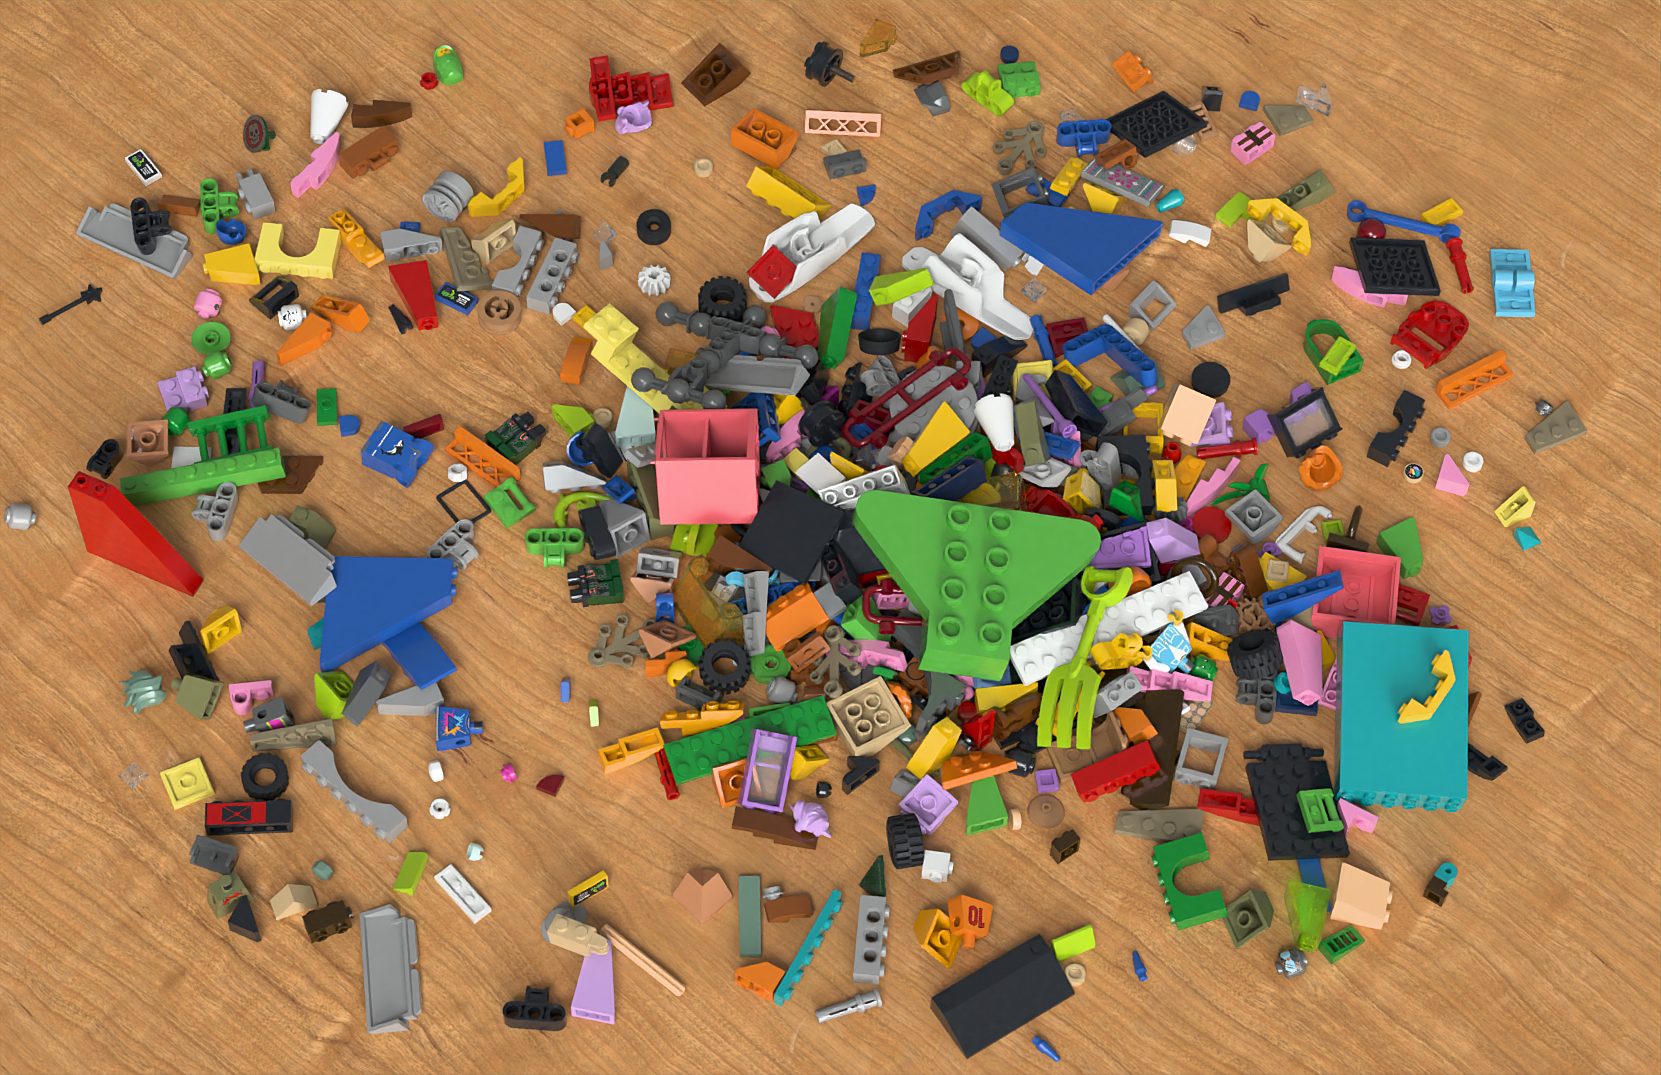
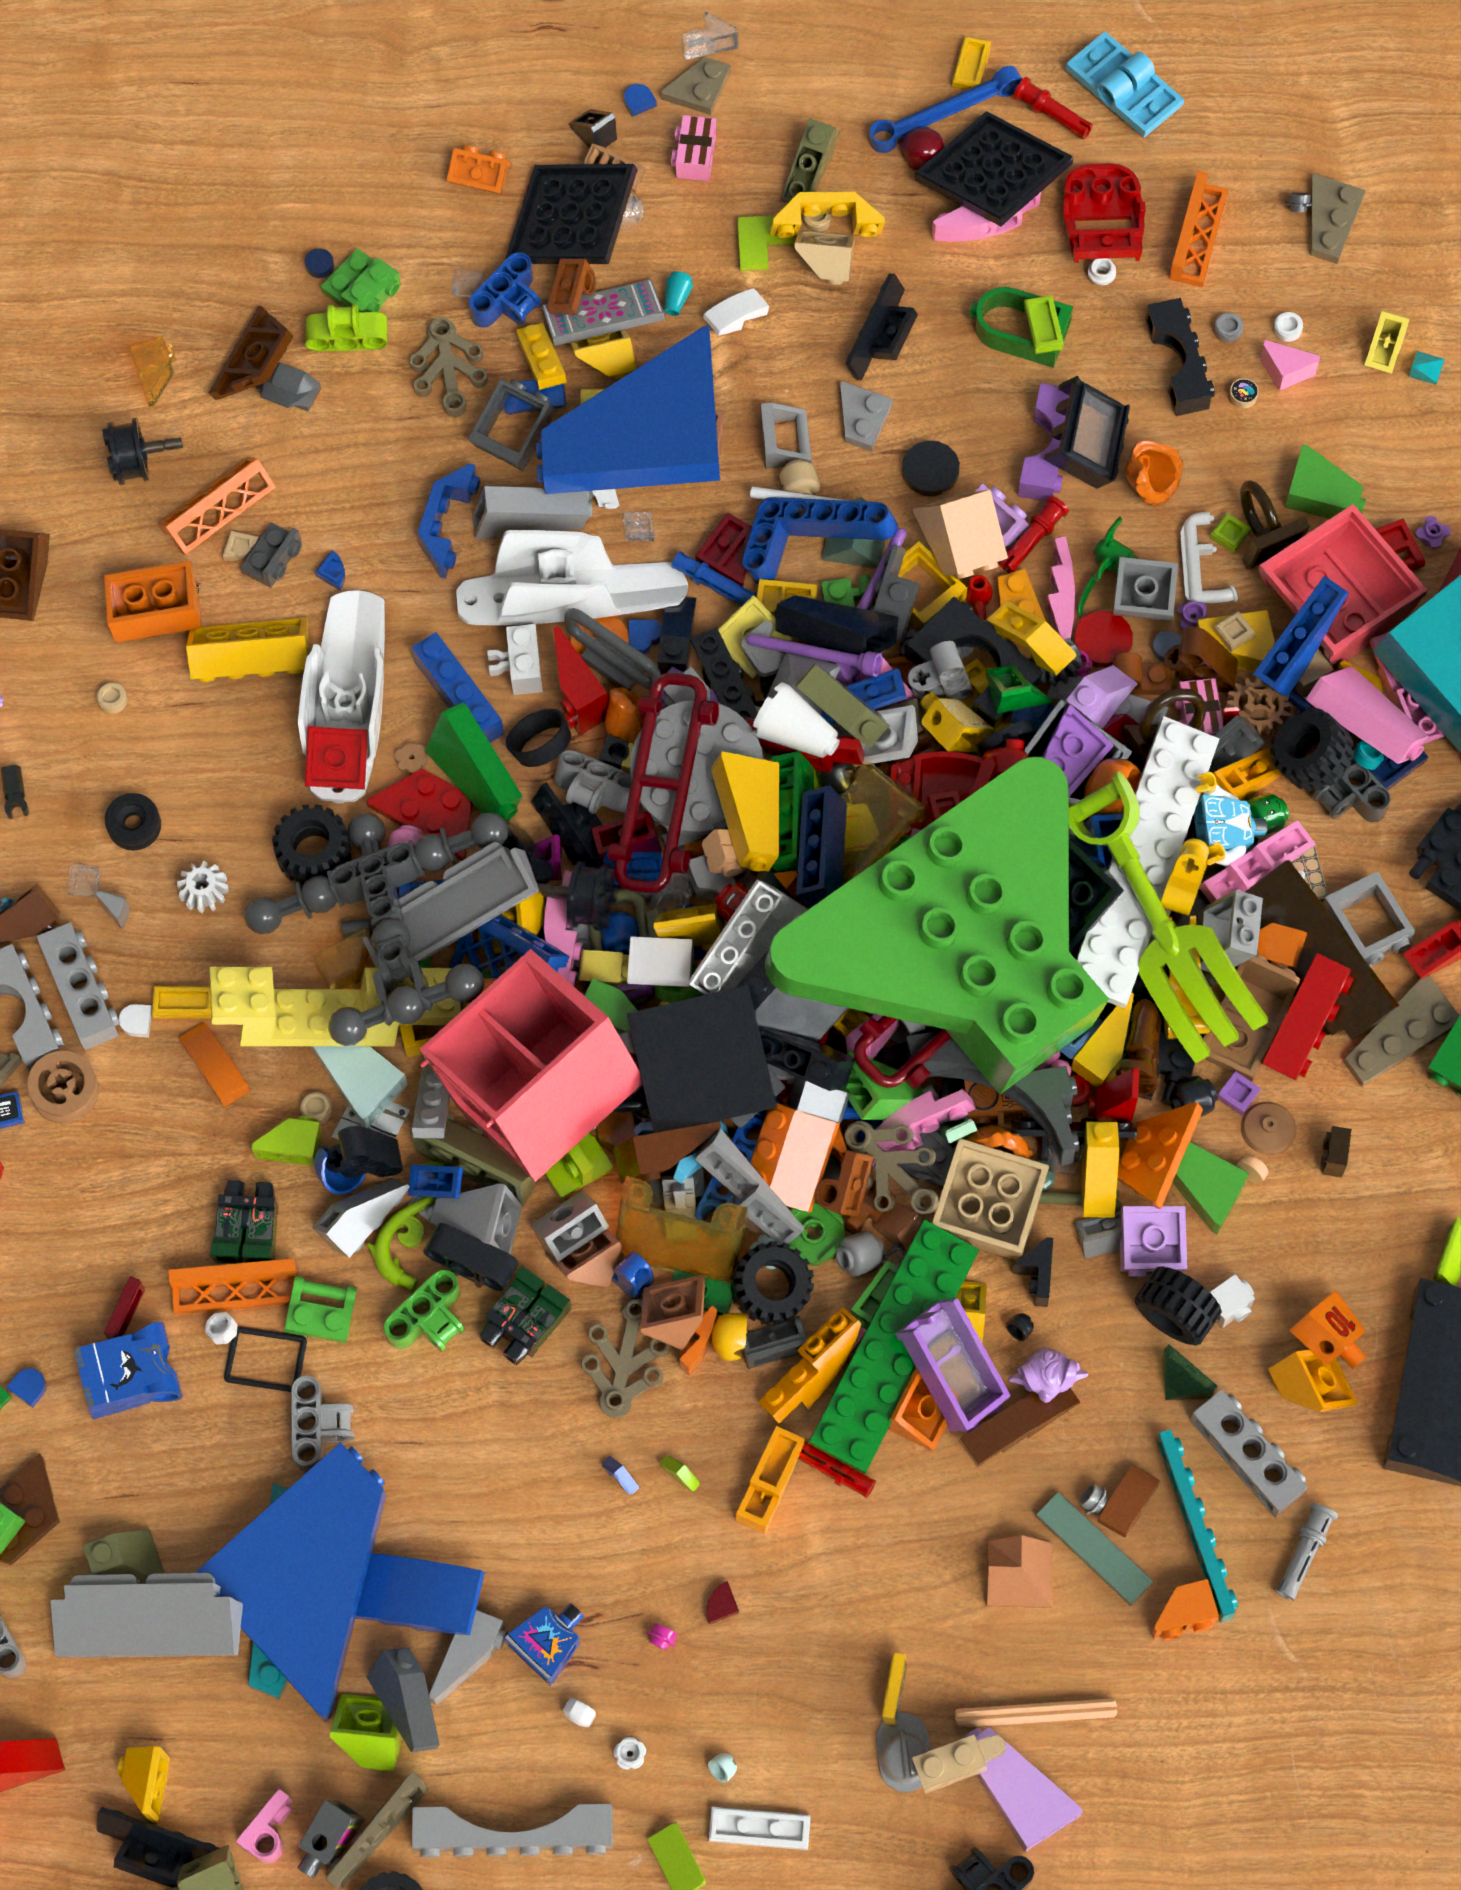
camera: 40 degrees left, 10 degrees up
(896, 286) = (500, 652): lime slope -> none

